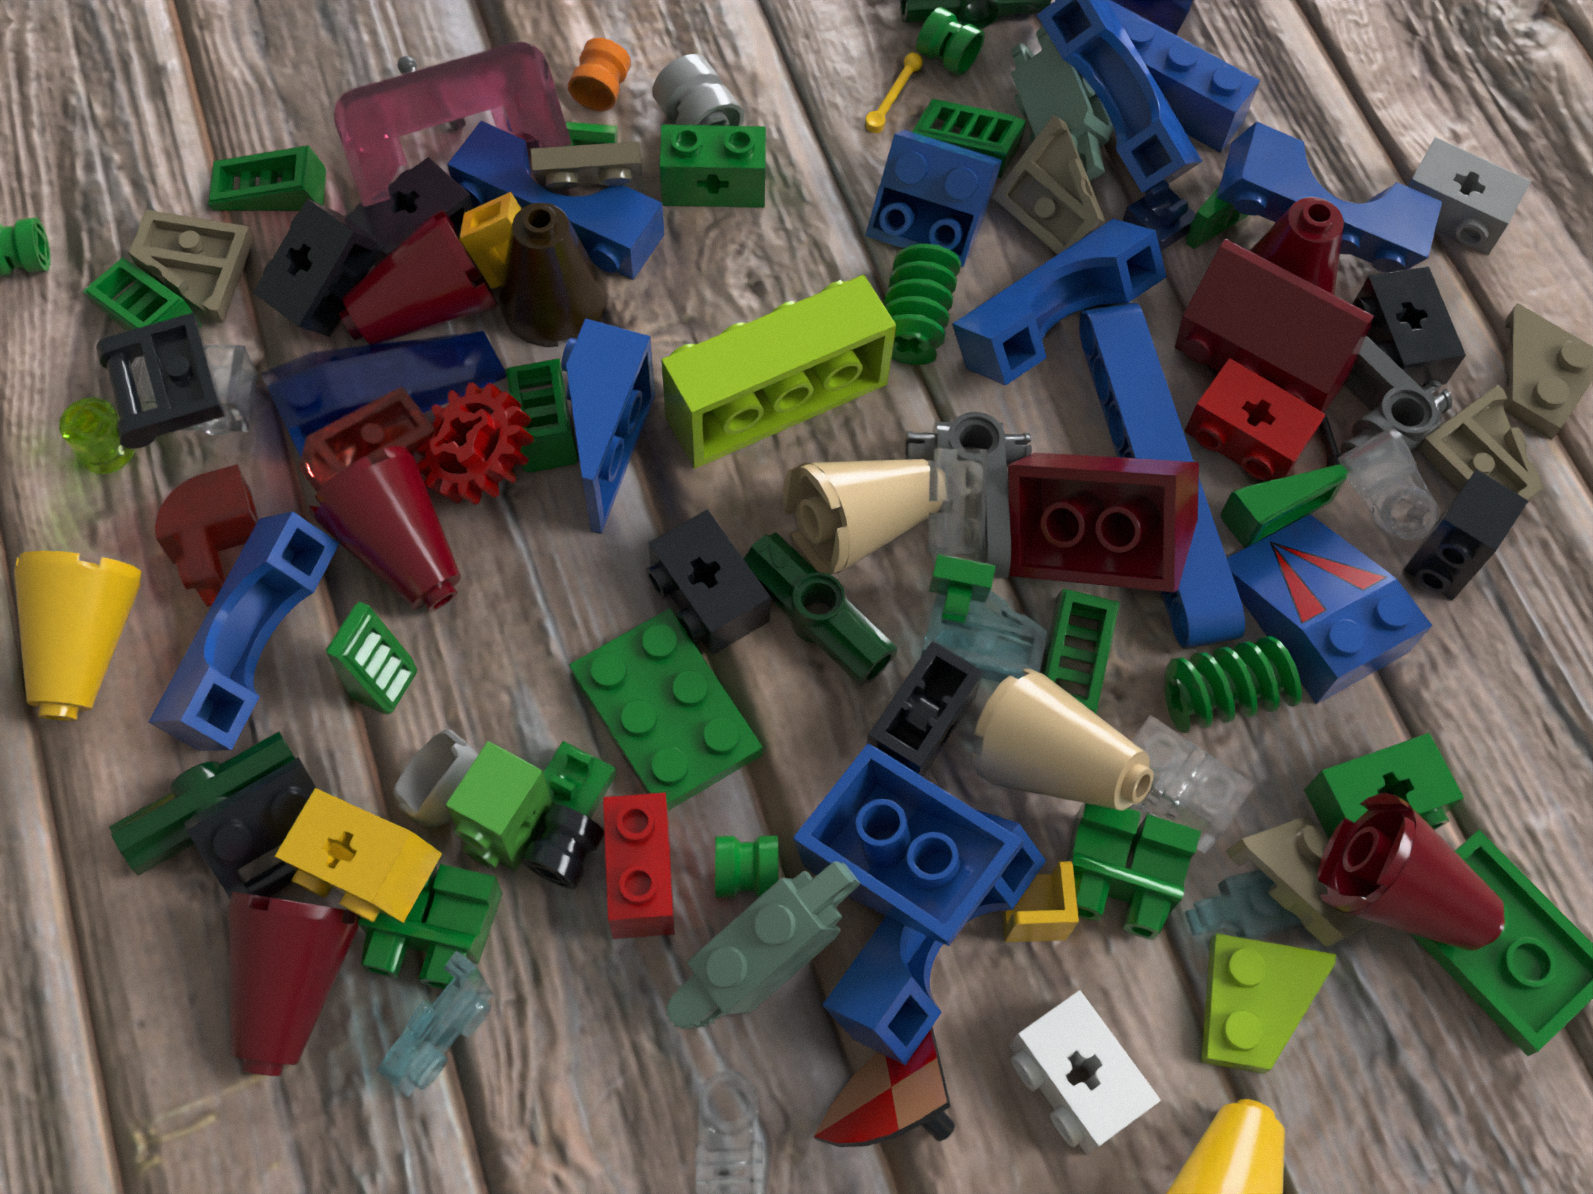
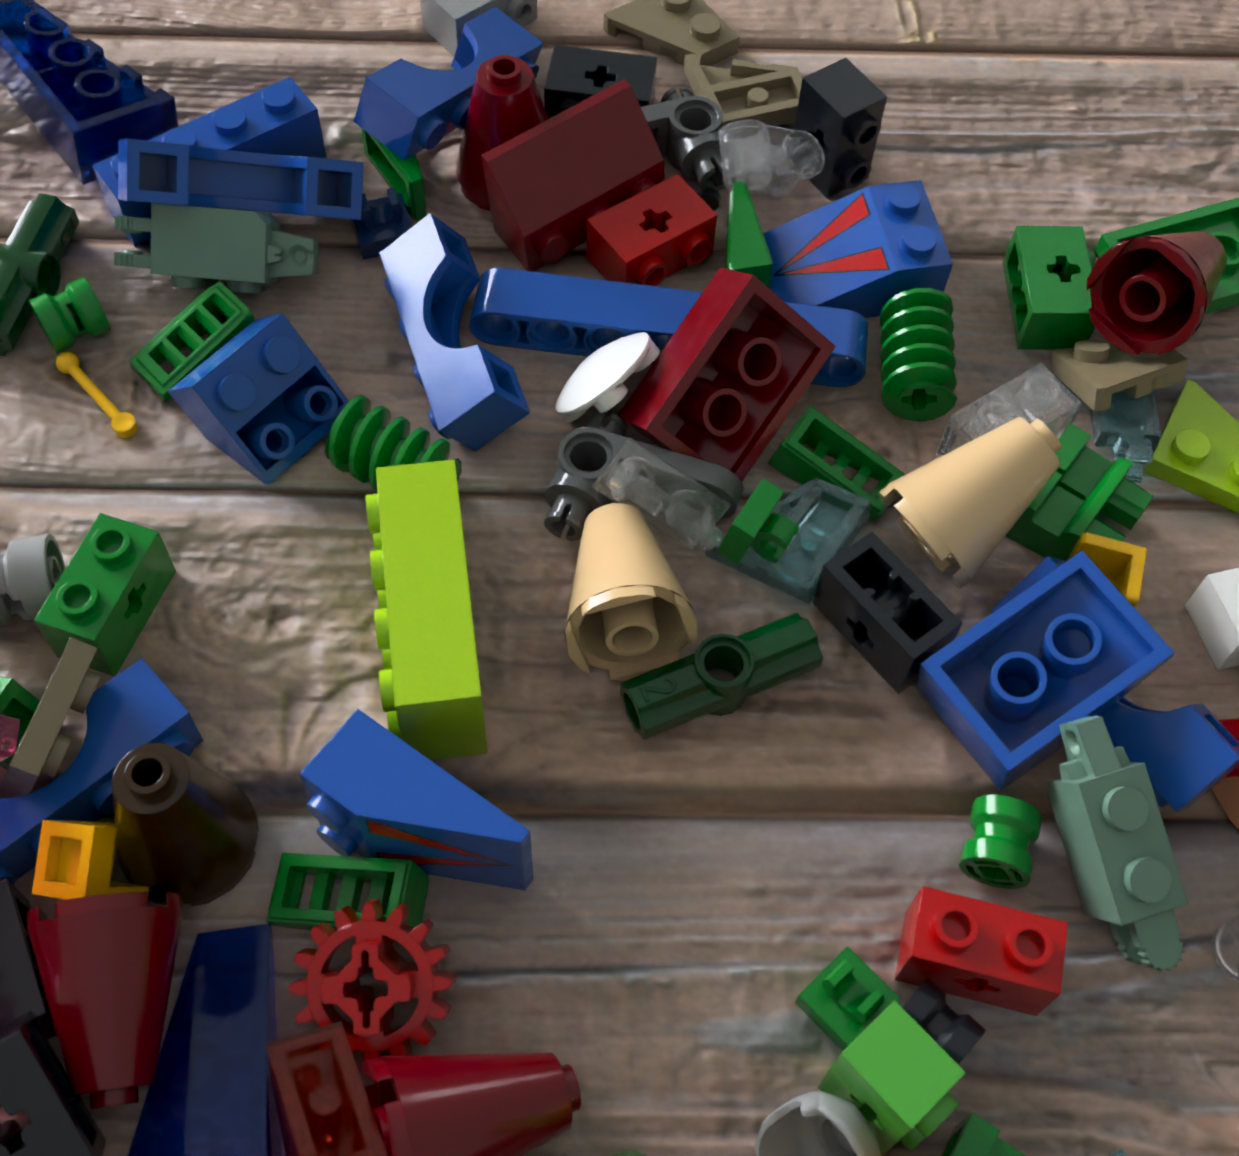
camera: 70 degrees left, 5 degrees down
(666, 709) = (785, 875): green plate -> none
(699, 558) = (679, 750): black brick -> none
(1048, 421) = (602, 374): none -> white dish
(1052, 190) = (321, 290): dark tan wing -> none

